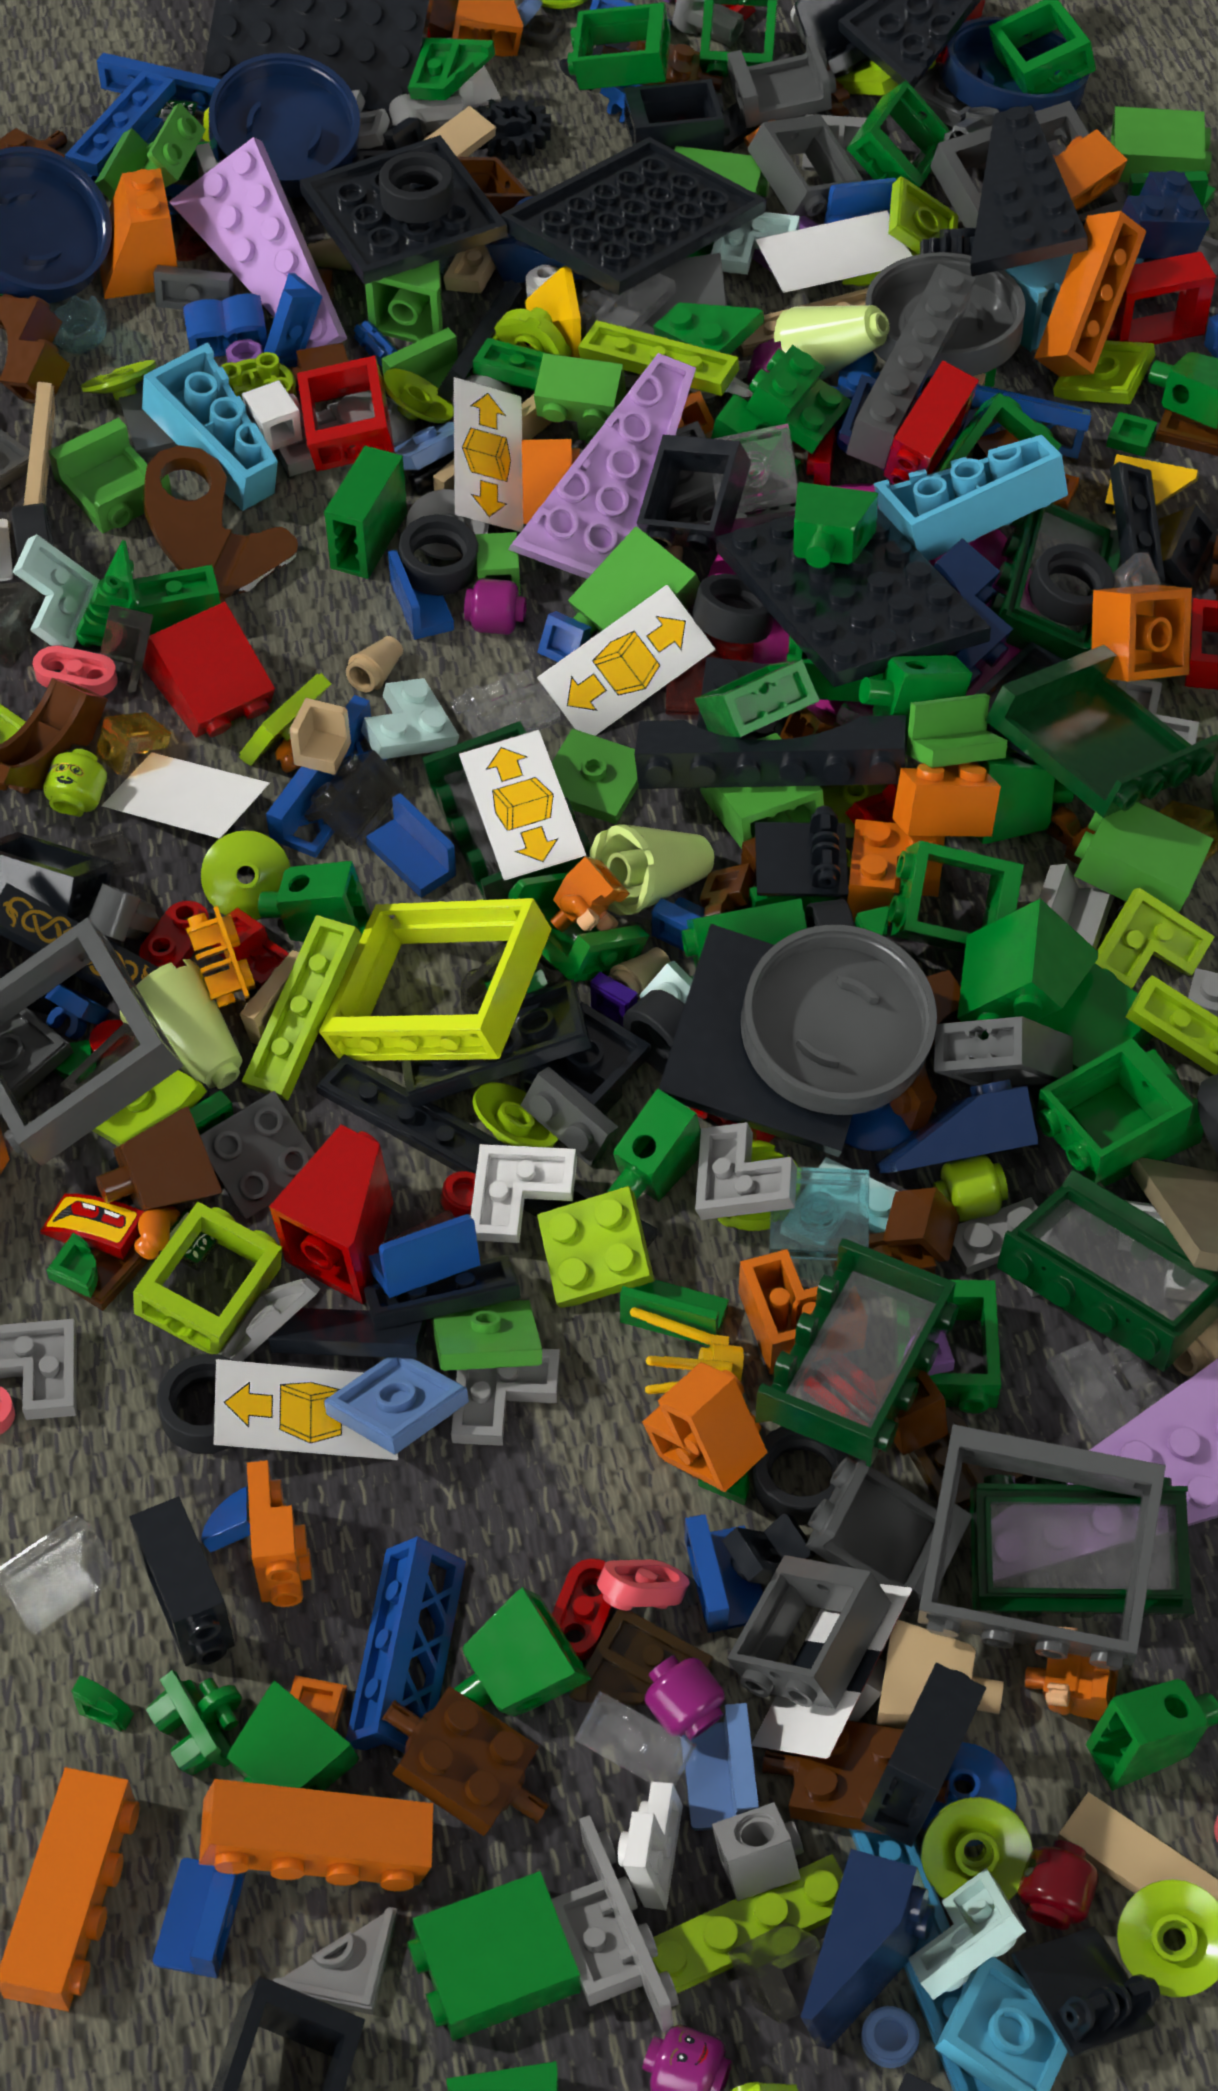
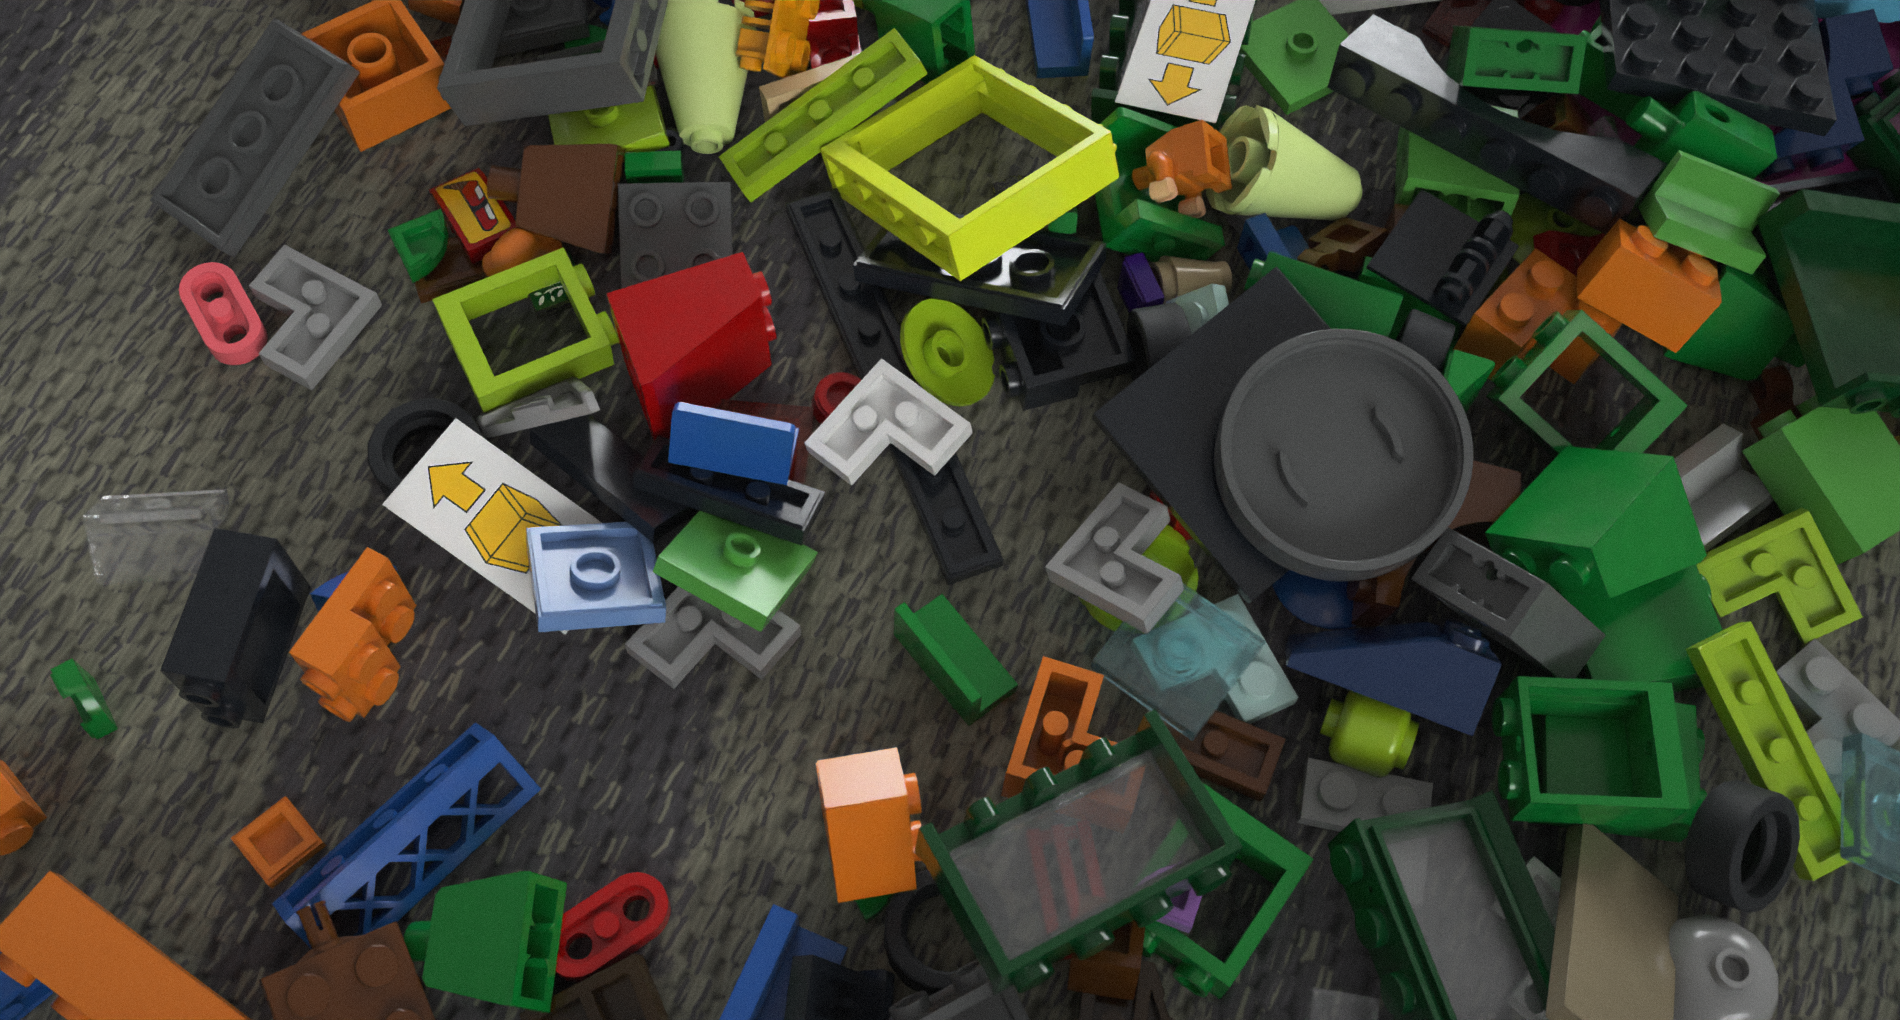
camera: 30 degrees right, 10 degrees up
(185, 1704) = (154, 782): green hips -> none
(289, 1745) = (196, 877): green torso -> none
(569, 1116) = (999, 384): dark grey plate -> none
(595, 1247) = (920, 540): lime plate -> none
(642, 1584) = (669, 940): coral plate -> none
(657, 1147) = (1054, 475): green torso -> none
(718, 1355) = (948, 750): yellow plant -> none
(922, 1219) = (1285, 737): reddish brown panel -> none

